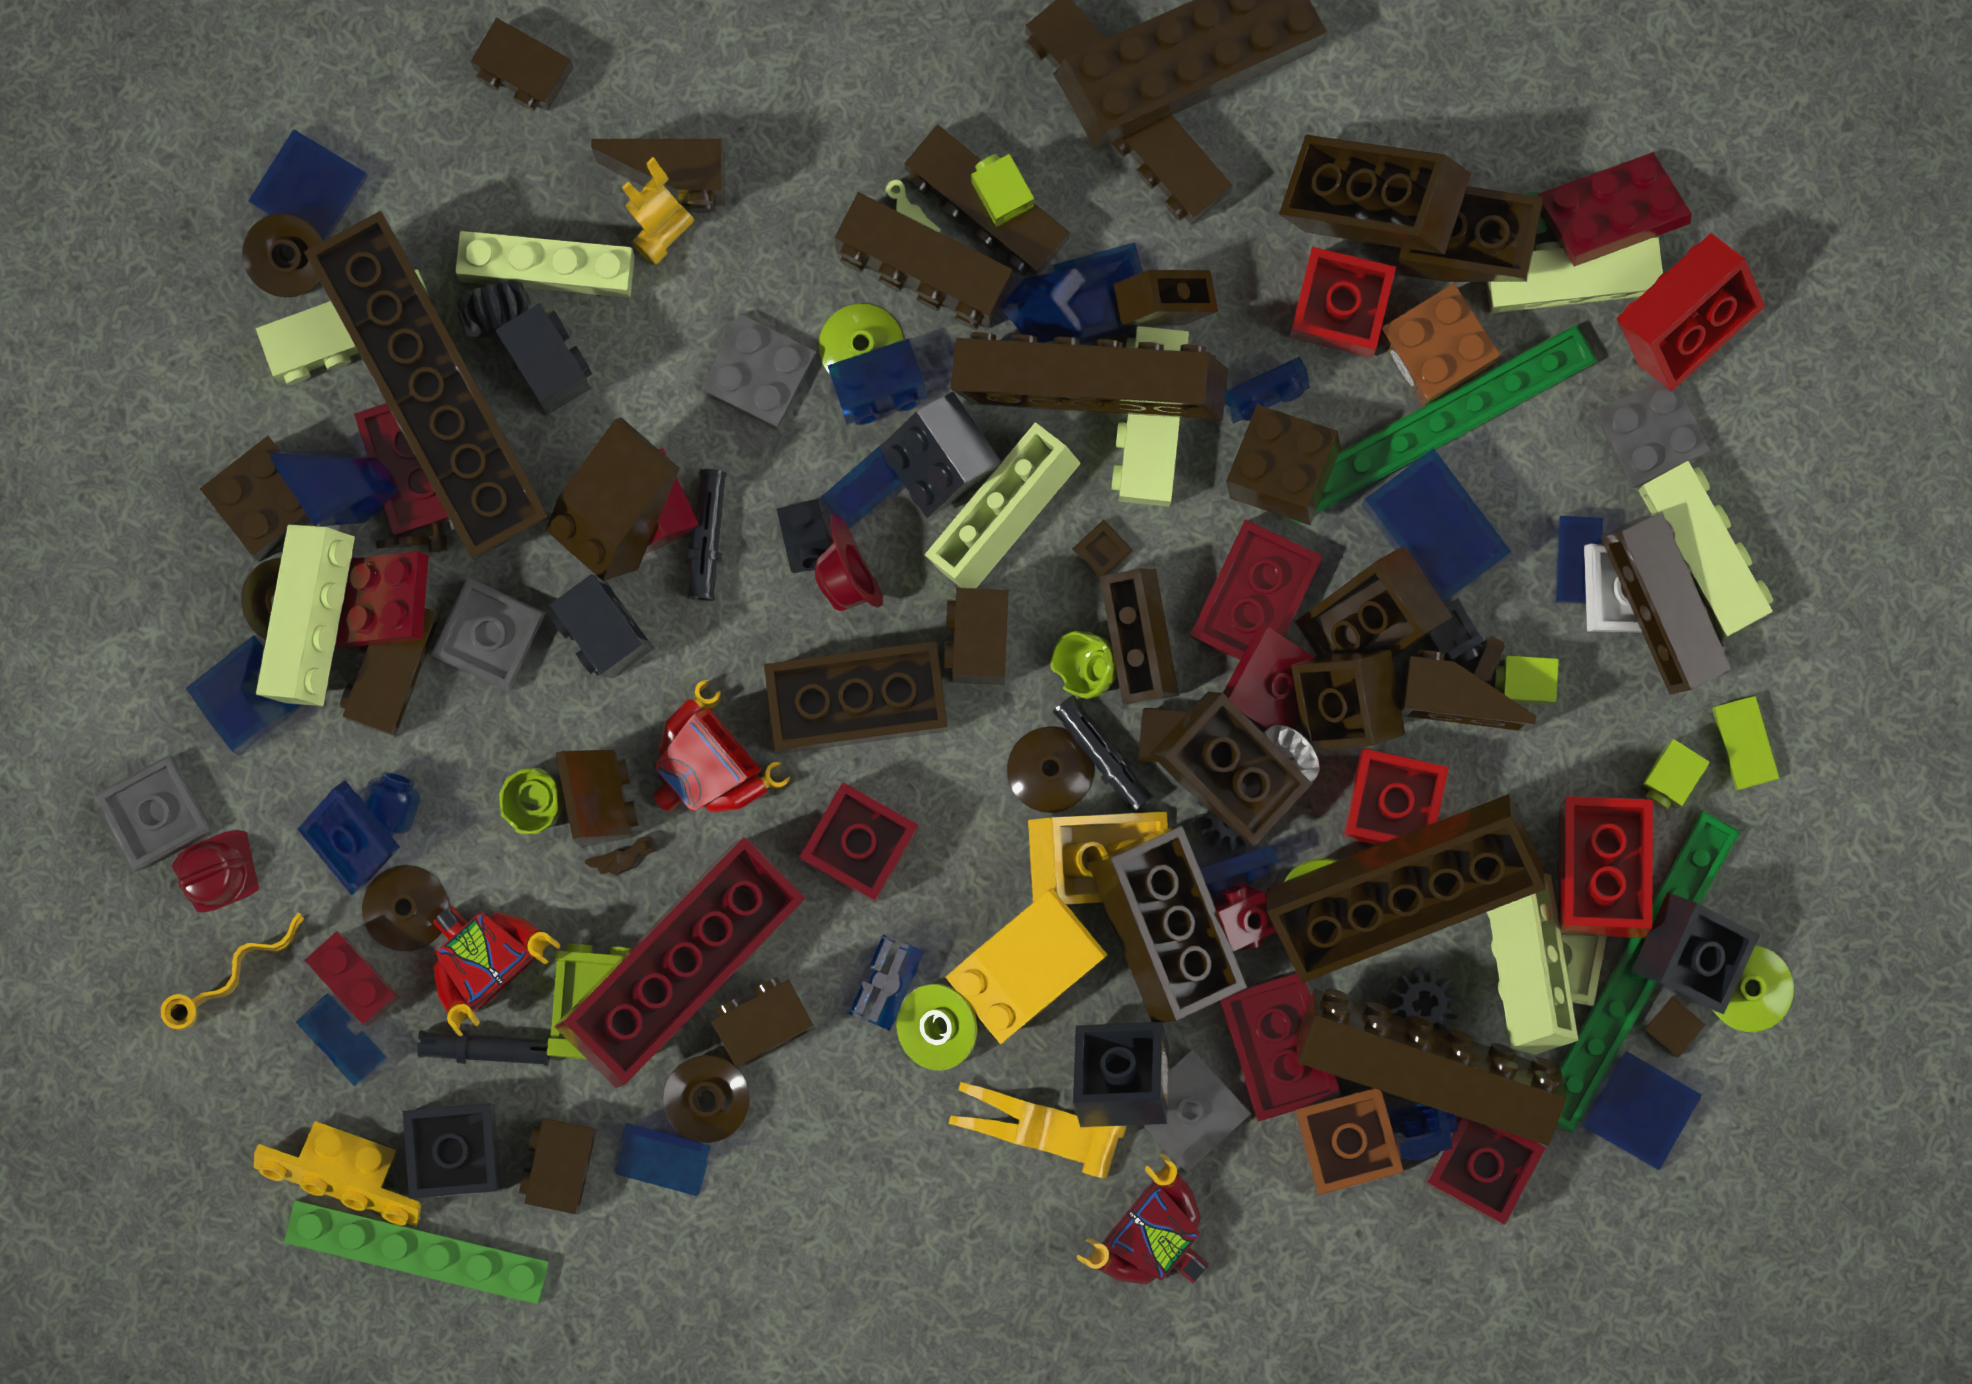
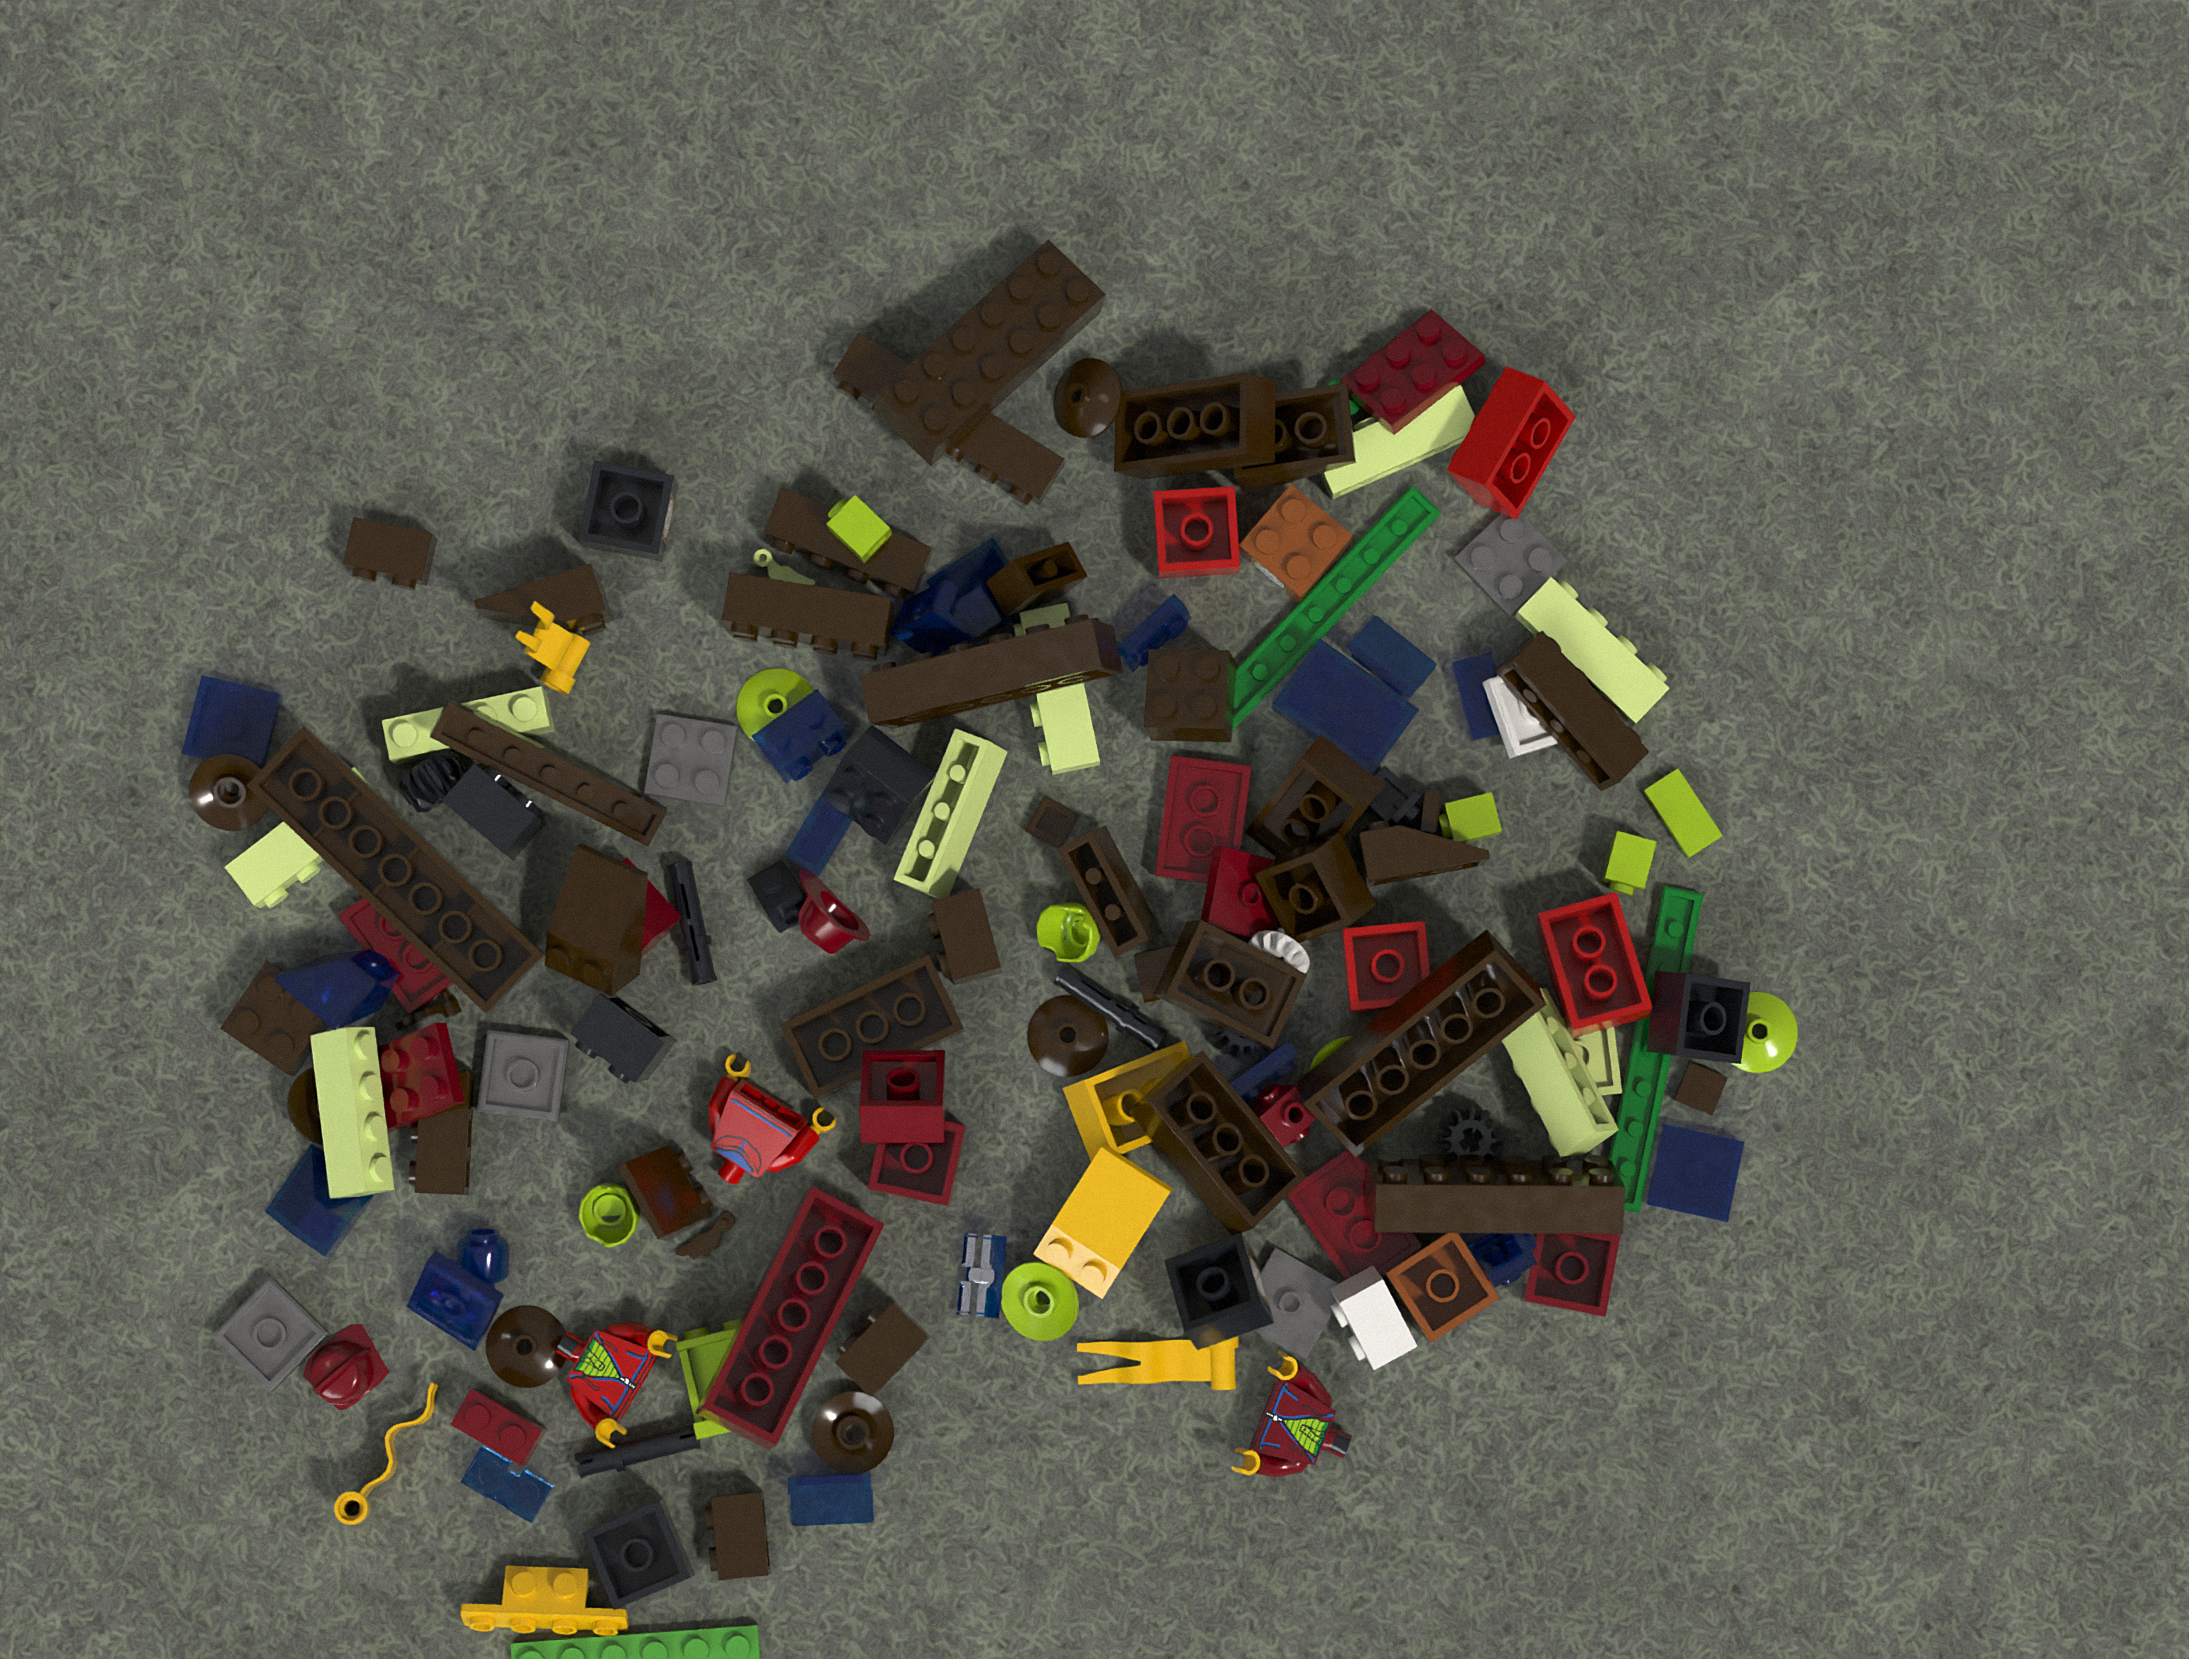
camera: 15 degrees left, 0 degrees up
(611, 336) = (548, 772): none -> dark brown plate
(775, 99) = (628, 511): none -> black brick
(864, 775) = (902, 1096): none -> dark red slope
(1268, 1151) = (1372, 1317): none -> white brick
(1286, 139) = (1099, 402): none -> dark brown dish
(1499, 491) = (1390, 658): none -> clear blue panel

